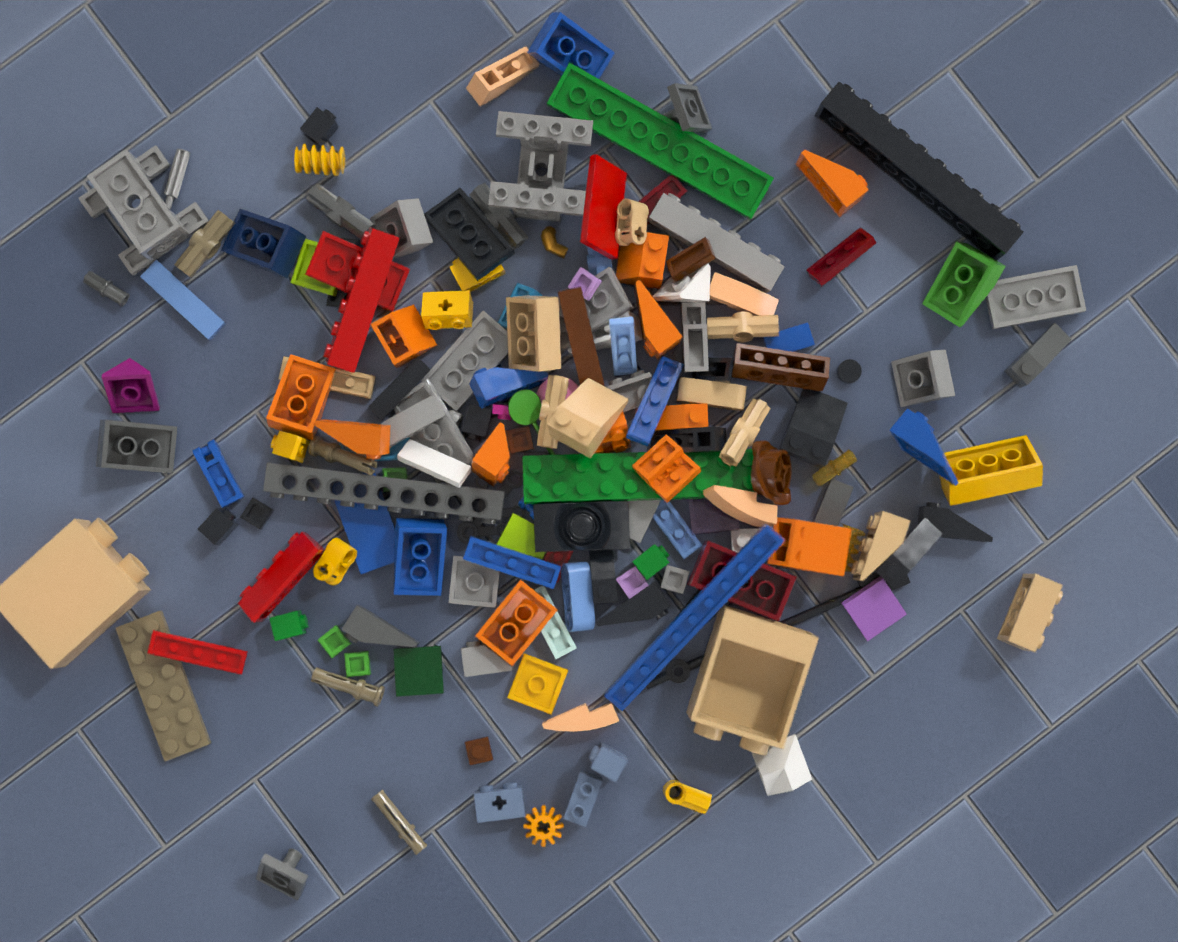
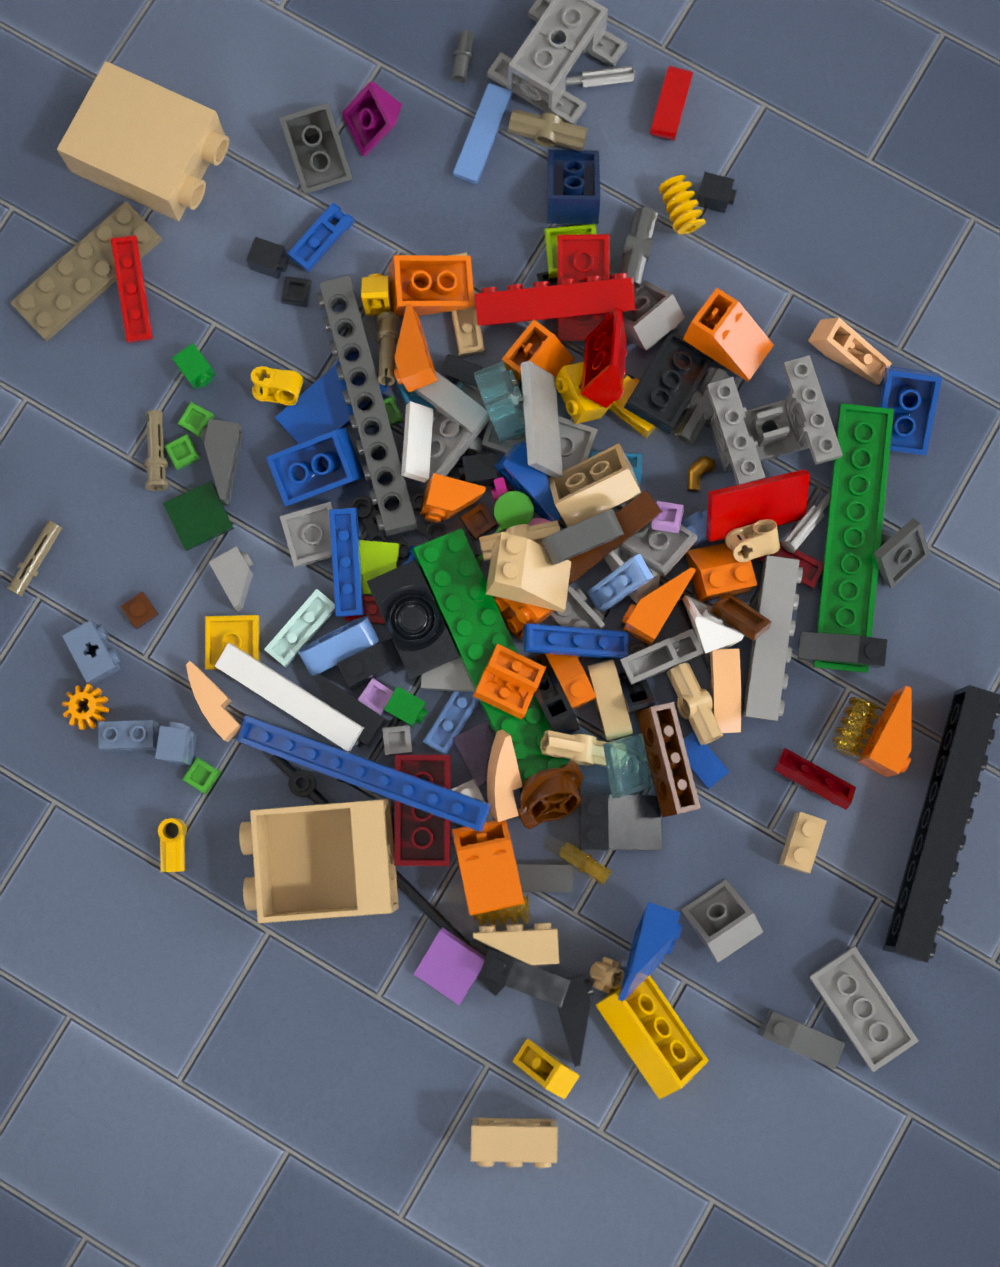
camera: 70 degrees right, 5 degrees down
(224, 130) = (671, 103): none -> red beam
(281, 577) = (239, 339): red slope -> none
(431, 280) = (605, 361): none -> red slope
(431, 378) = (502, 400): none -> clear light blue brick
(449, 168) = (729, 335): none -> orange slope
(461, 353) = (541, 420): none -> light grey tile
(516, 622) = (284, 591): orange slope -> none
(575, 359) = (582, 537): none -> dark grey beam
(605, 653) = (289, 697): none -> white tile
(633, 175) = (805, 525): none -> light grey axle
(638, 751) = (201, 775): none -> bright green tile
(748, 189) = (843, 649): none -> black slope
(772, 401) = (627, 765): none -> clear light blue tile
(782, 768) = (241, 937): white slope -> none
(814, 207) = (855, 727): none -> clear yellow piece
(849, 371) = (695, 837): black tile -> none
(888, 288) = (802, 842): none -> tan brick
(929, 487) = (606, 975): none -> tan gear
(963, 283) = (844, 922): bright green slope -> none
(983, 565) = (546, 1069): none -> yellow slope

